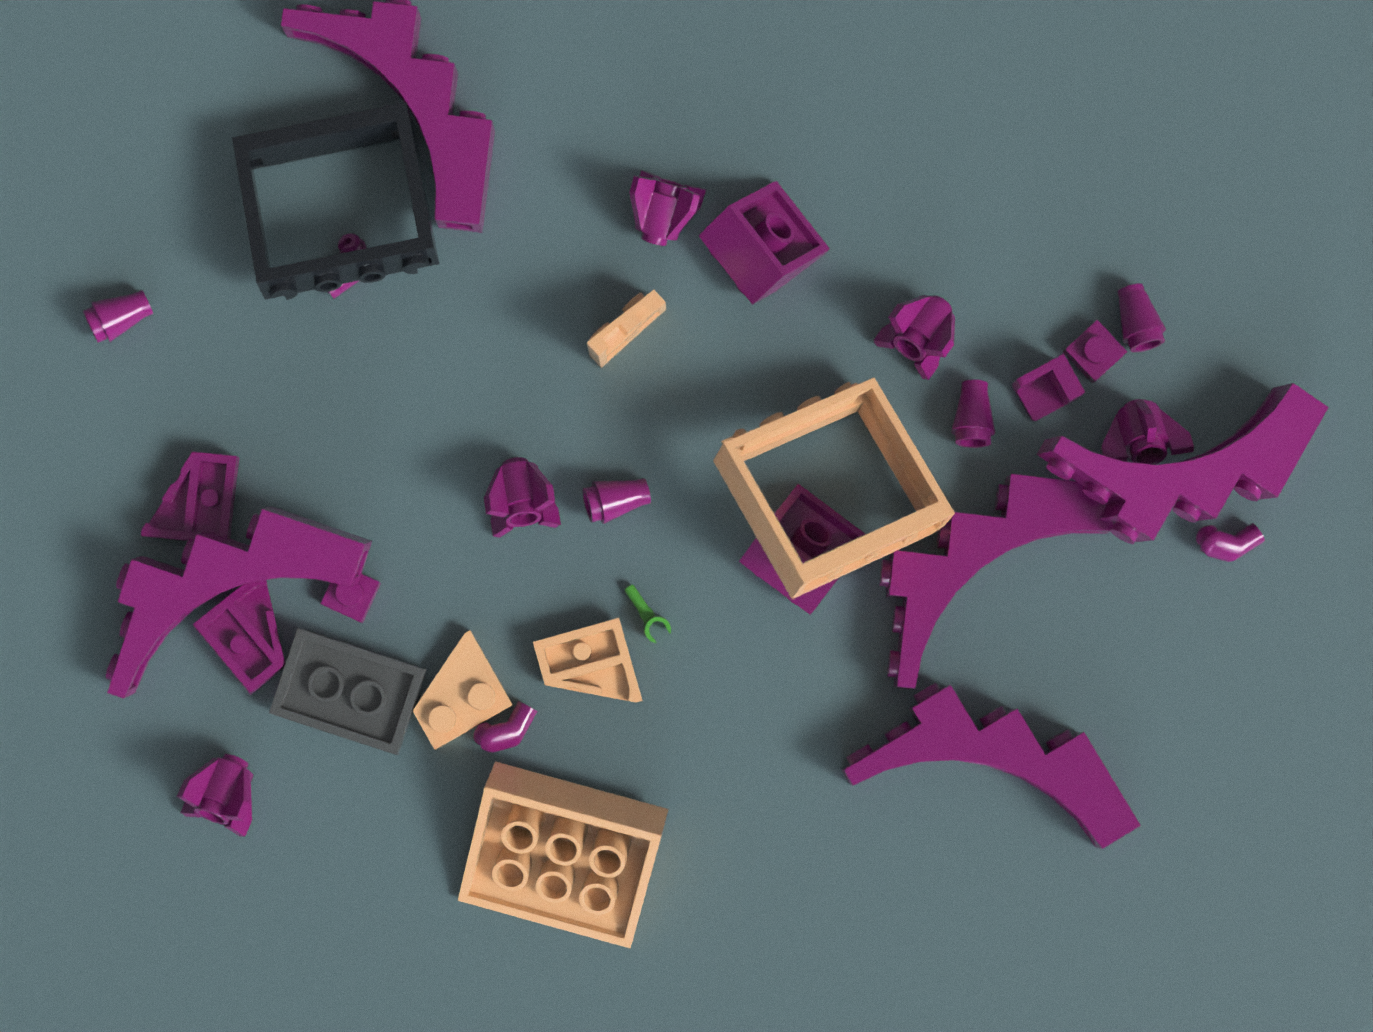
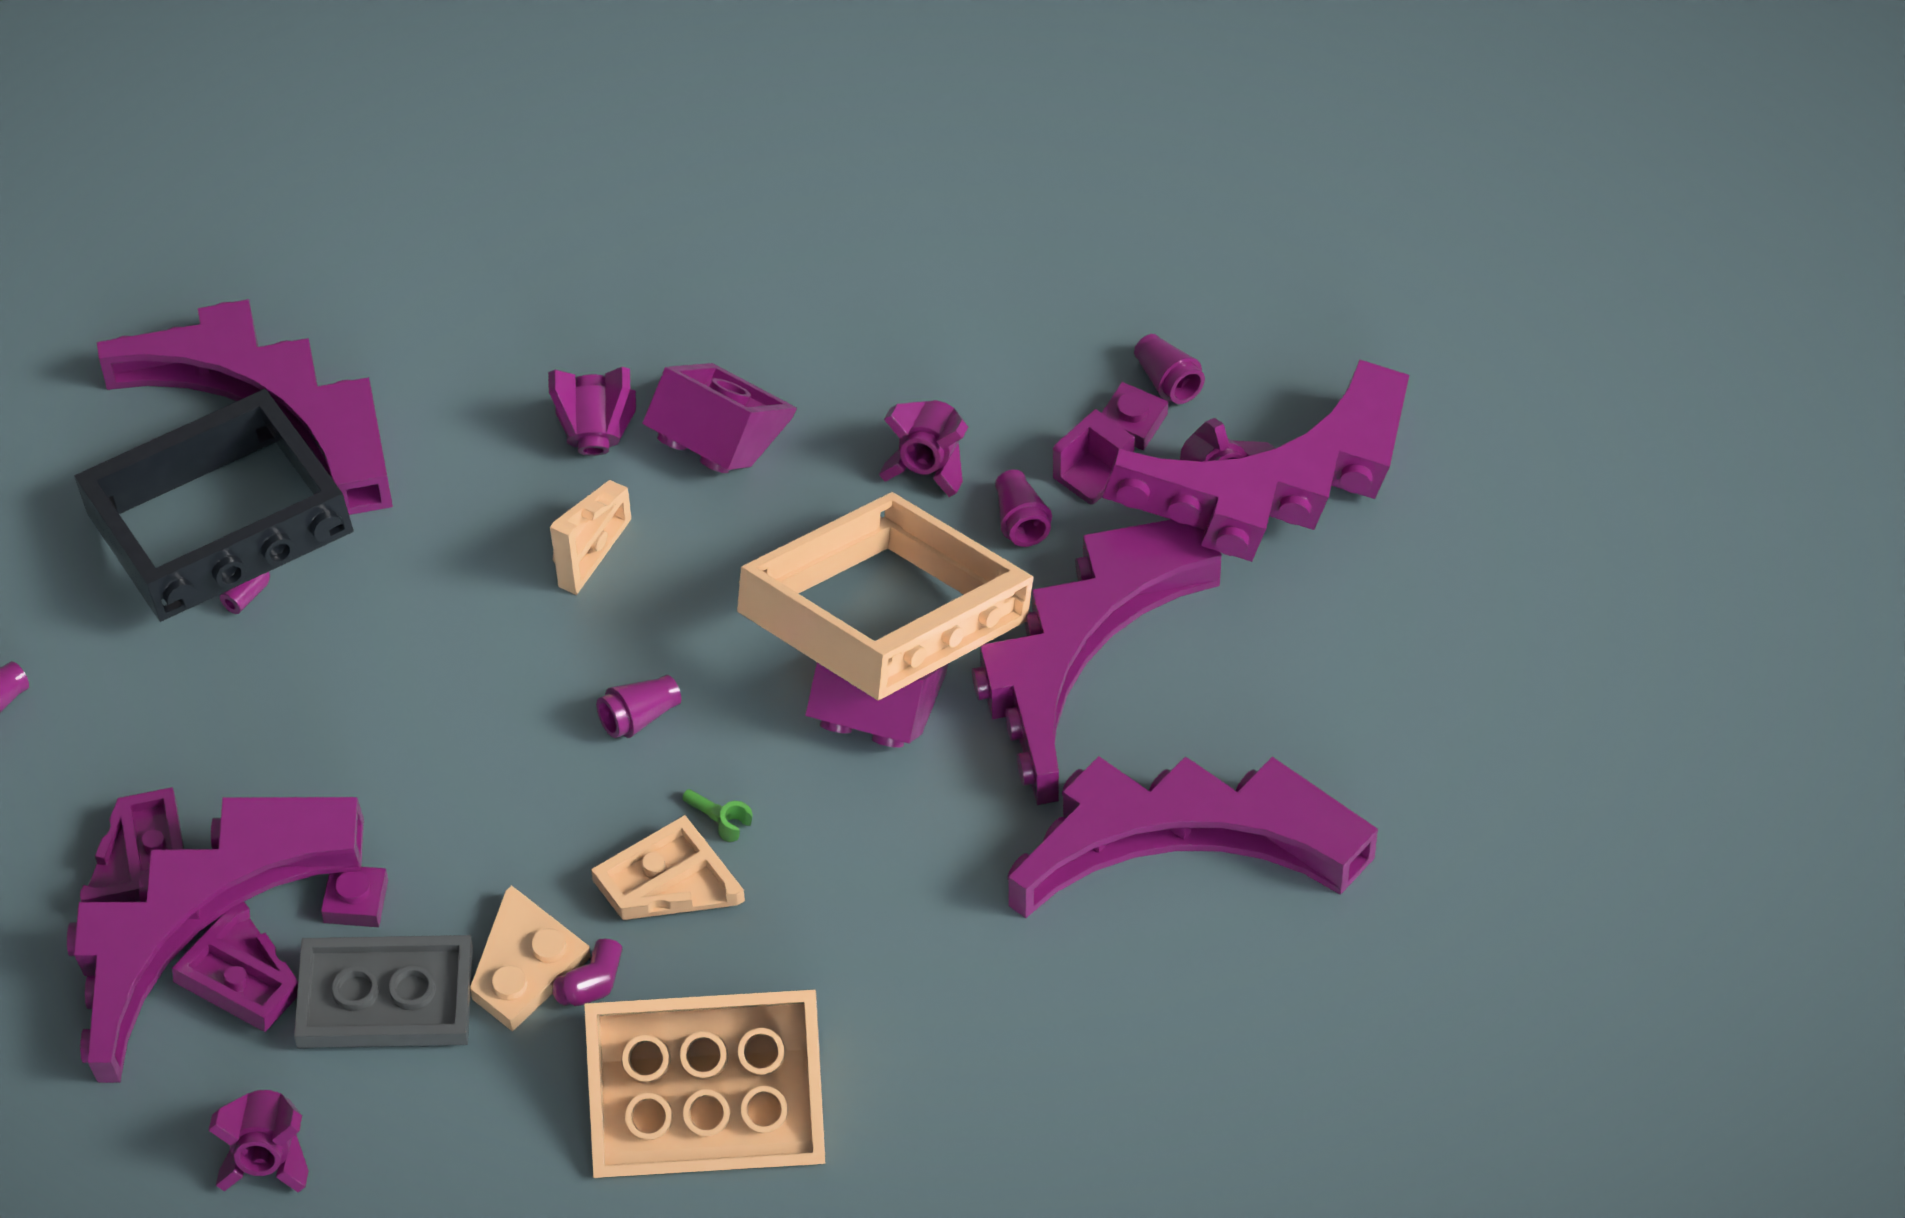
camera: 15 degrees left, 30 degrees down
(520, 497) = (527, 729): magenta brick -> none
(1228, 546) = (1359, 550): magenta arm -> none

